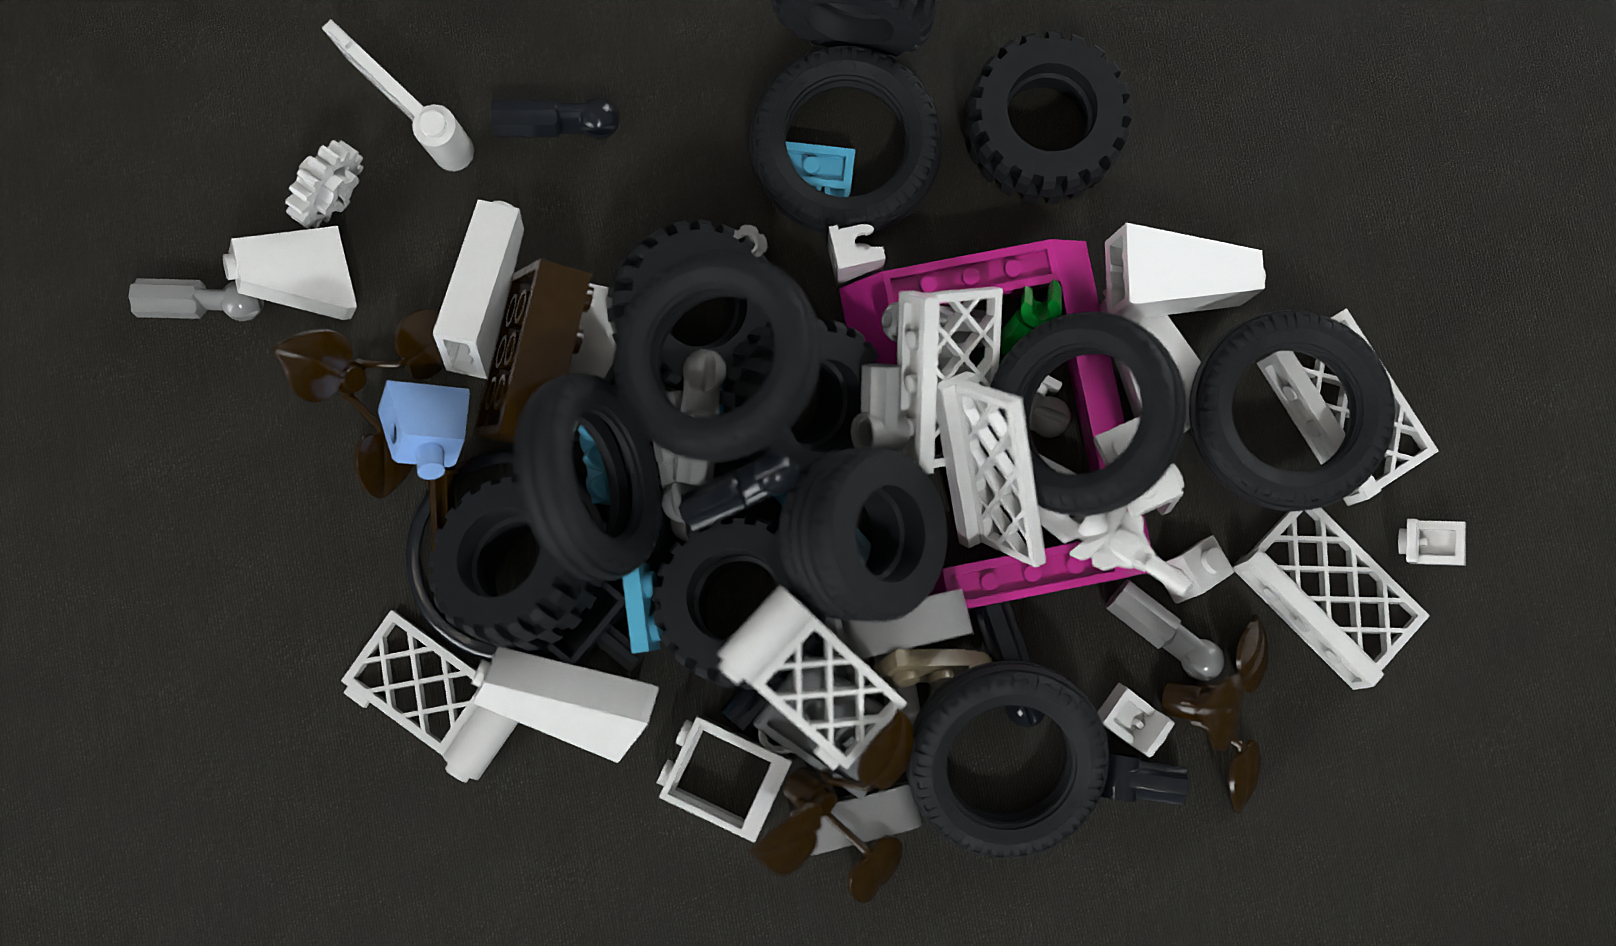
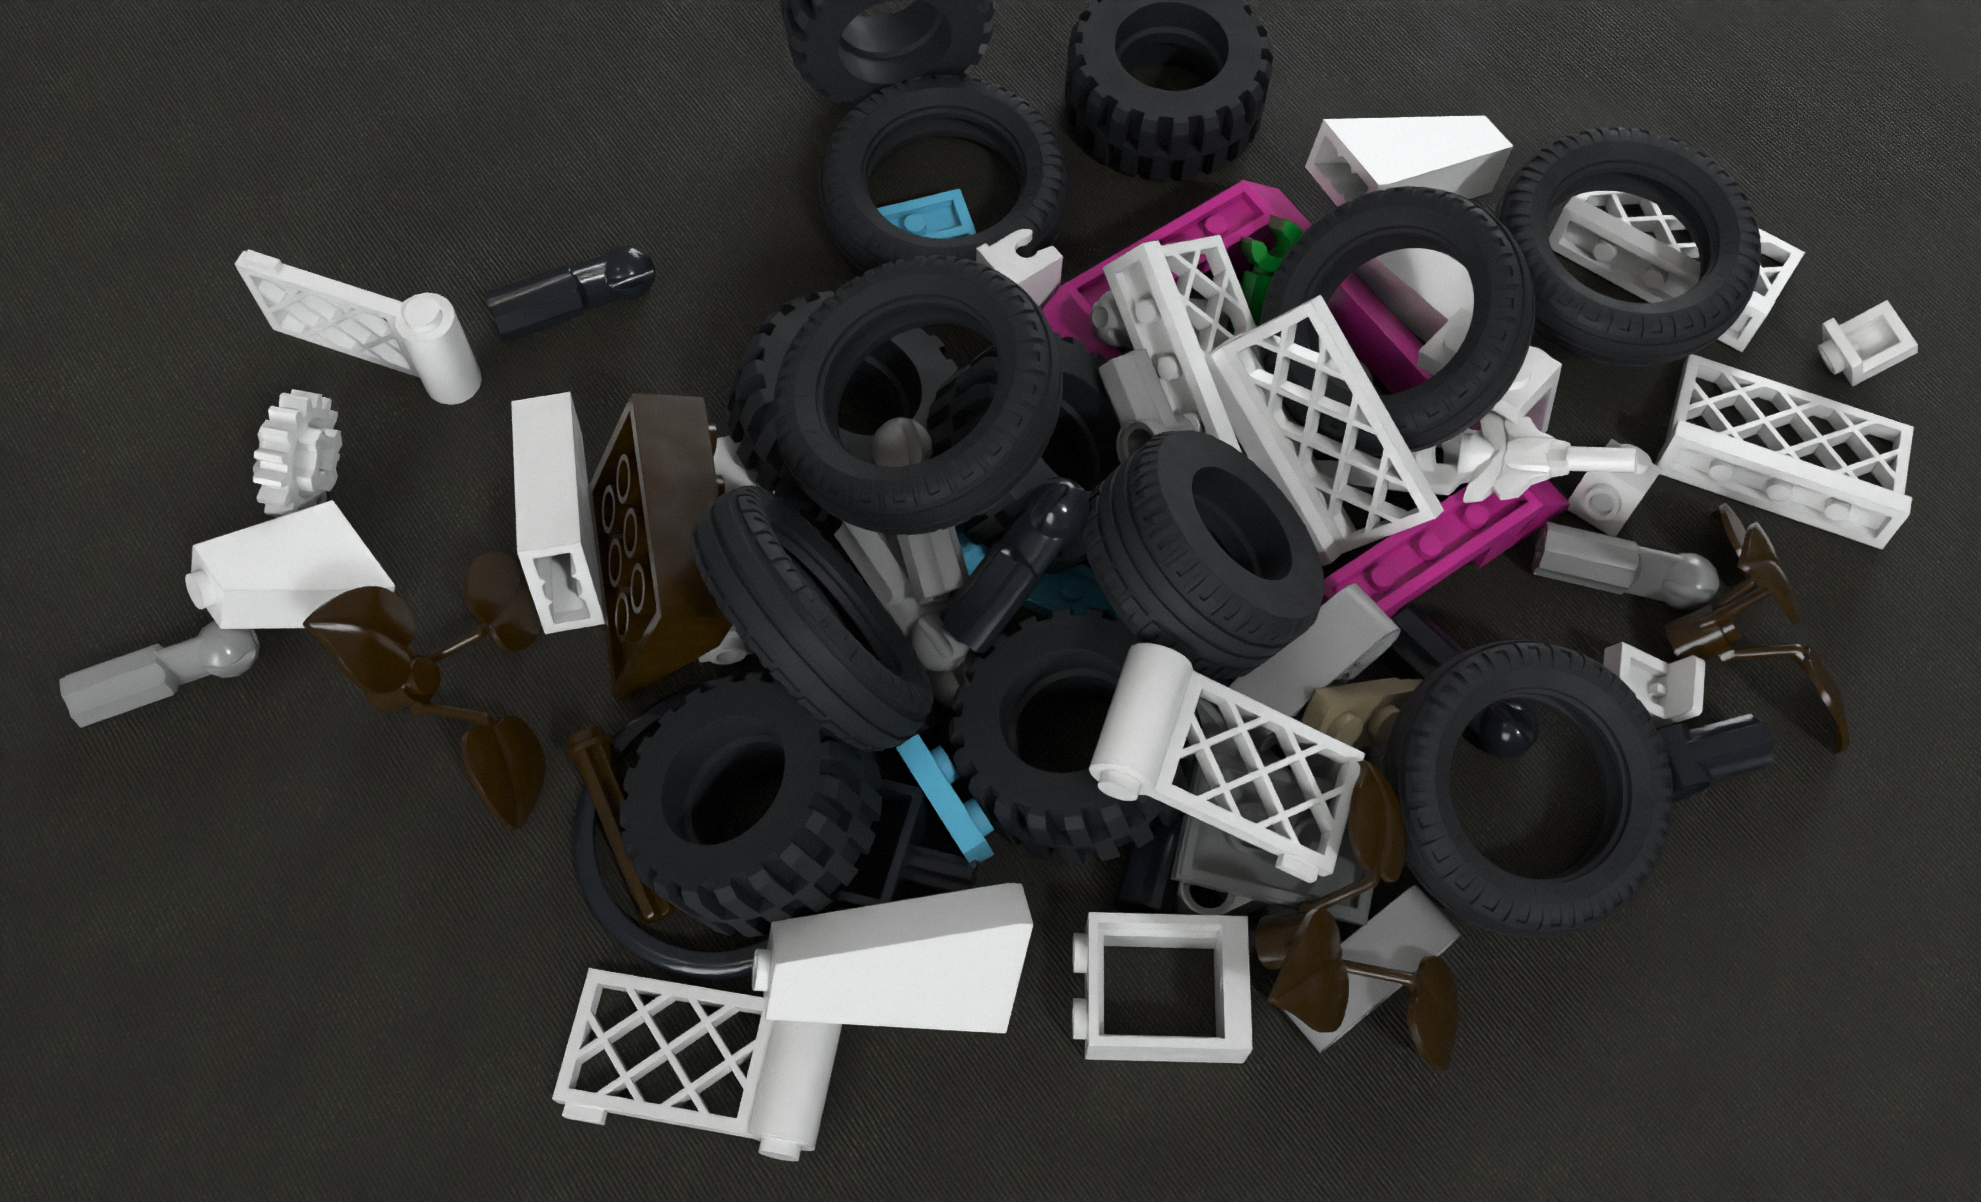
camera: 25 degrees left, 20 degrees down
(424, 424) = (544, 685): light blue torso -> none

